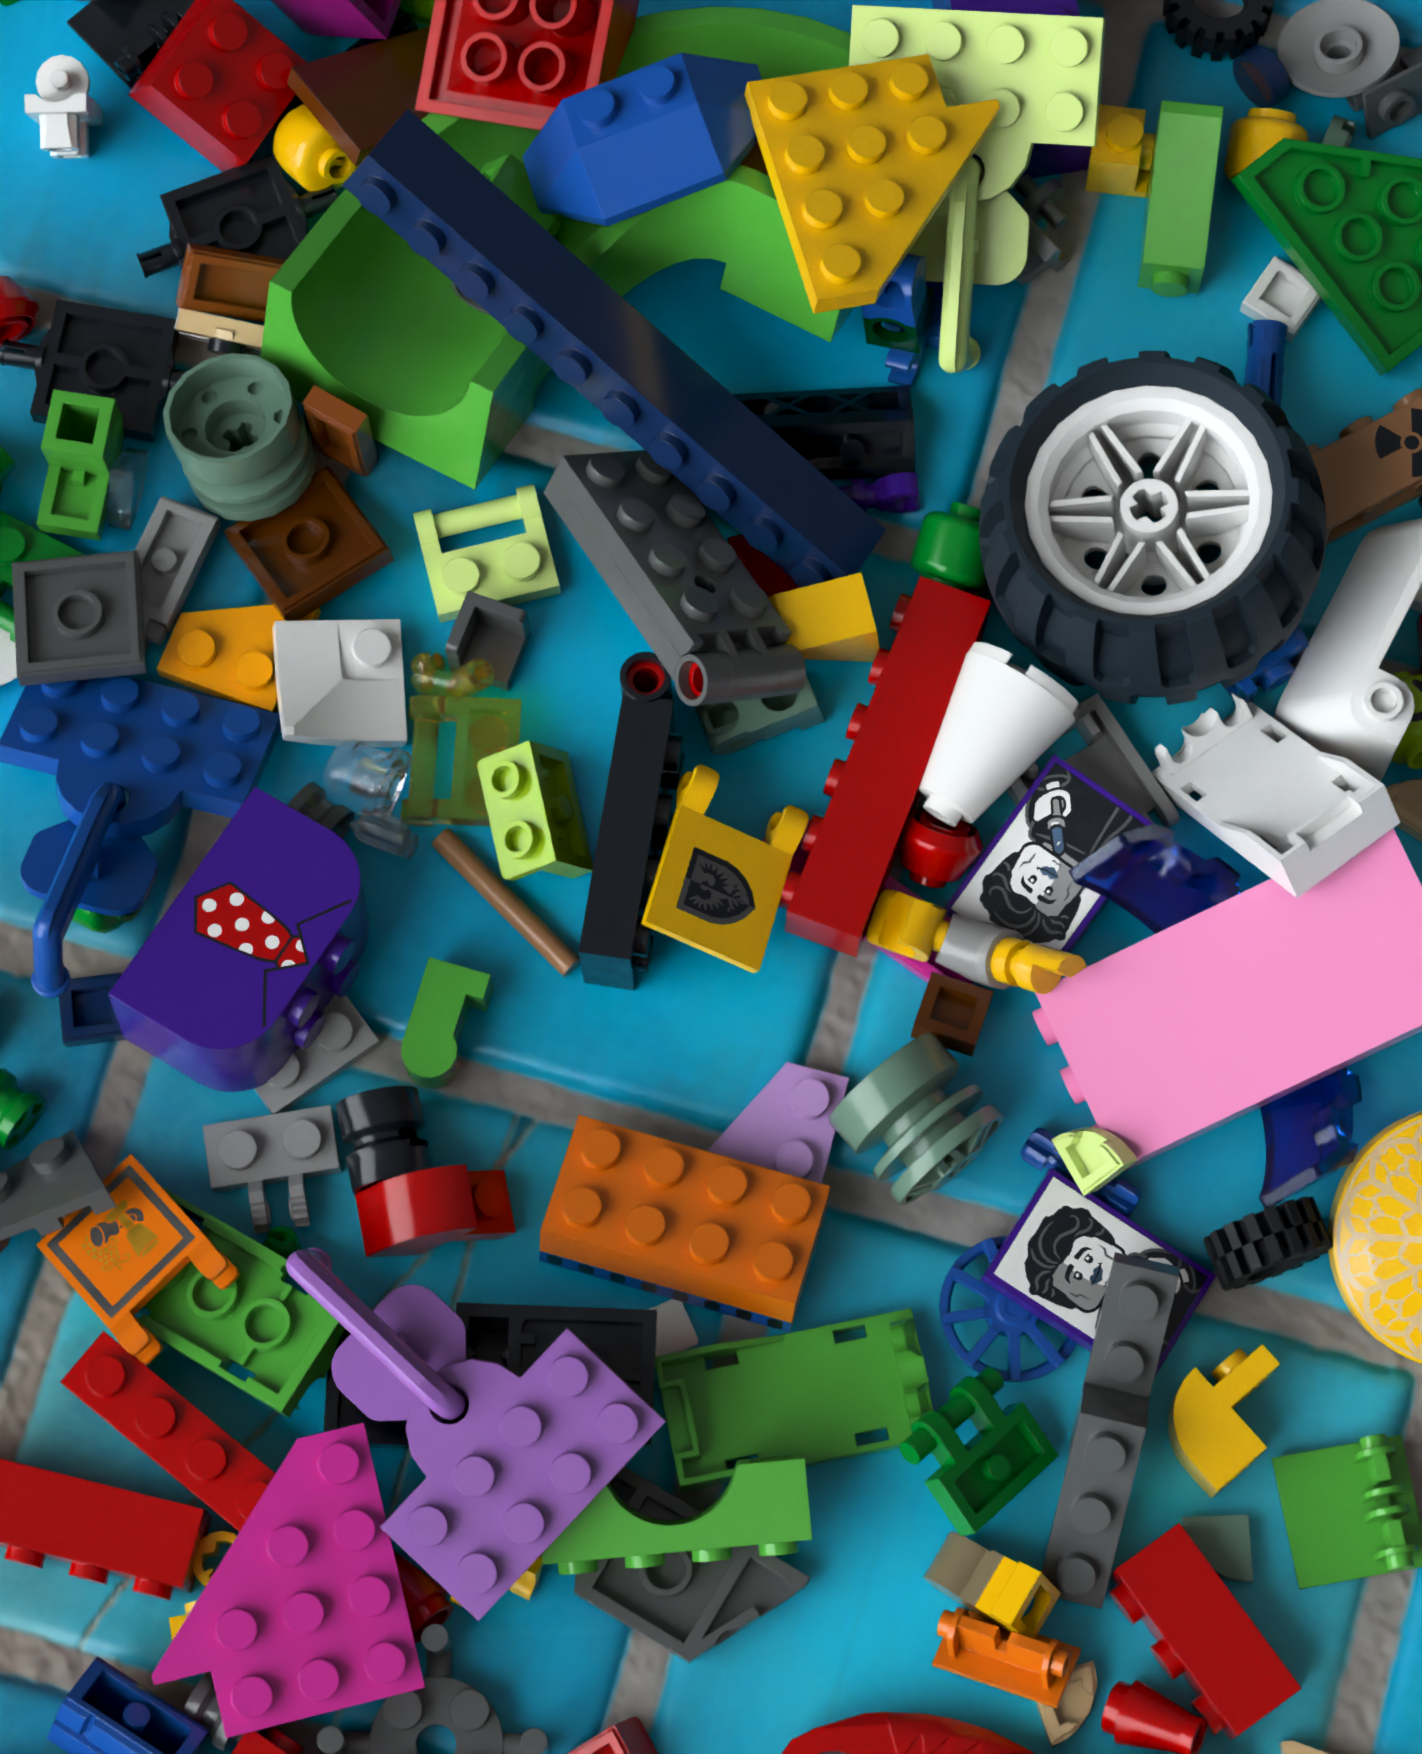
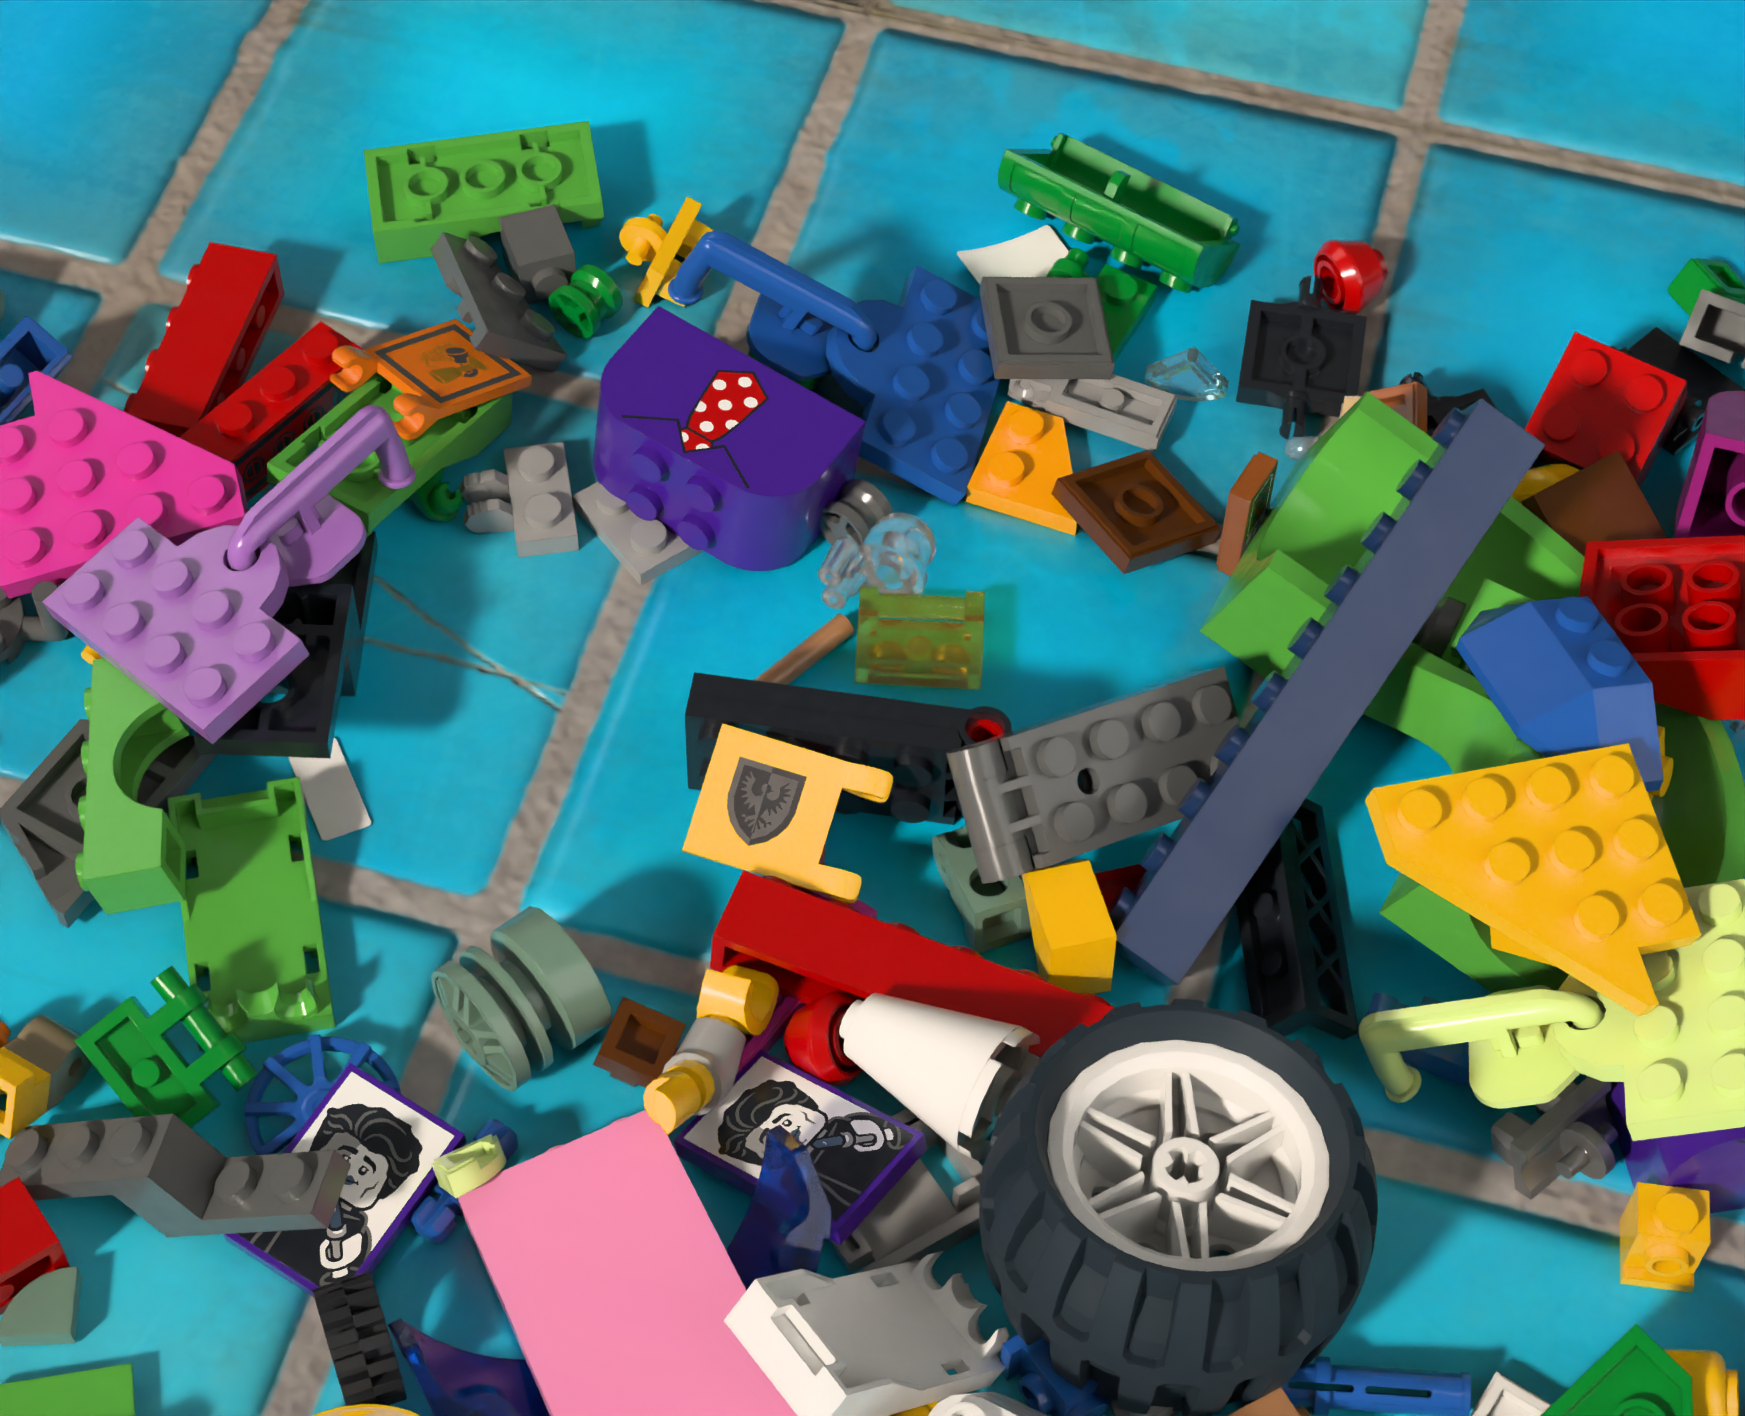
camera: 85 degrees right, 20 degrees down
(63, 108) = (1546, 308): white hips -> none
(80, 446) = (1218, 328): bright green brick -> none
(240, 437) = (1222, 420): sand green wheel -> none
(340, 681) = (994, 532): white plate -> none
(384, 1134) = (557, 564): black wheel -> none
(433, 1208) = (465, 614): red brick -> none
(439, 1019) = (654, 616): bright green leg -> none
(465, 681) = (1004, 619): clear yellow arm -> none
(489, 632) = (1043, 648): dark grey panel -> none
(502, 569) = (1116, 651): yellowish green plate -> none
(534, 812) = (883, 667): lime bracket -> none
(683, 1223) = (429, 804): orange brick -> none
(787, 1123) = (511, 881): lavender wing -> none
(891, 493) = (1224, 977): dark purple piece -> none
(905, 303) = (1440, 962): leg -> none
(1179, 198) = (1606, 1283): bright green slope -> none
(1204, 1427) = (172, 1287): yellow brick -> none

